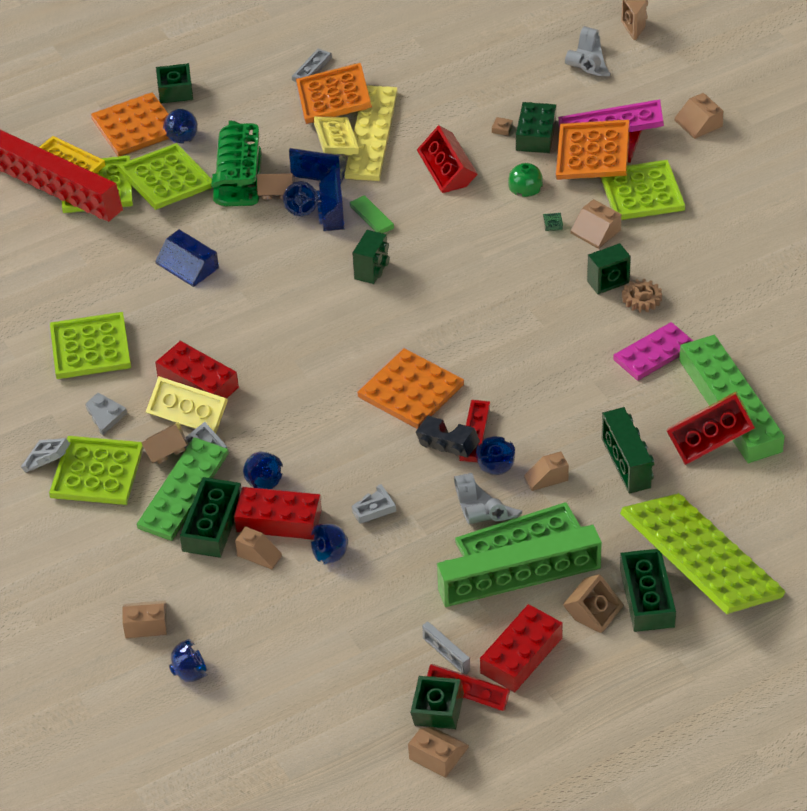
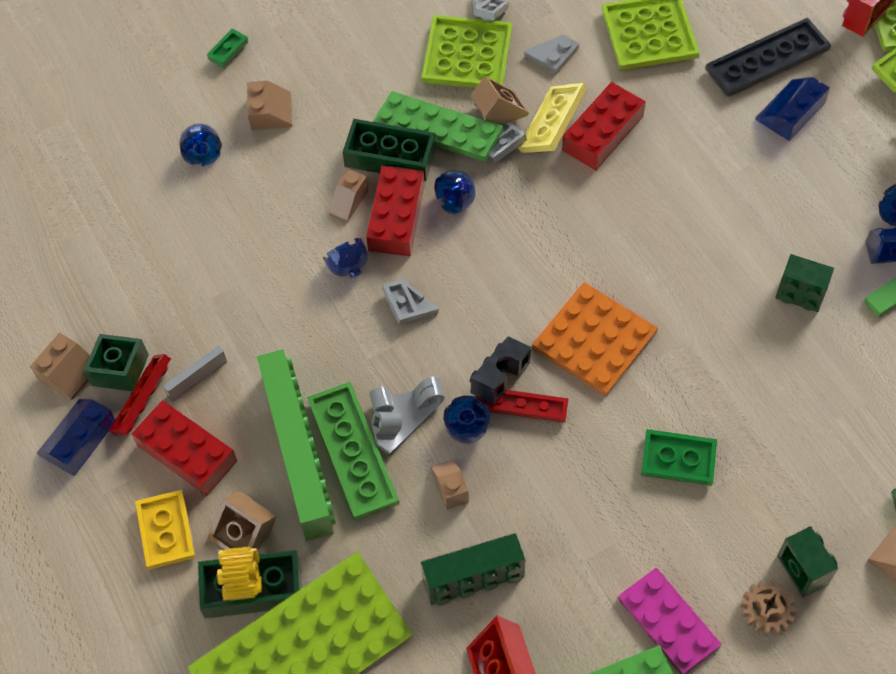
camera: 90 degrees right, 15 degrees up
(64, 655) = (227, 48): none -> green plate
(131, 272) = (767, 57): none -> black plate
(508, 731) = (77, 435): none -> clear blue slope
(521, 339) = (679, 457): none -> green plate
(598, 658) = (165, 529): none -> yellow plate
(651, 572) = (239, 573): none -> yellow brick

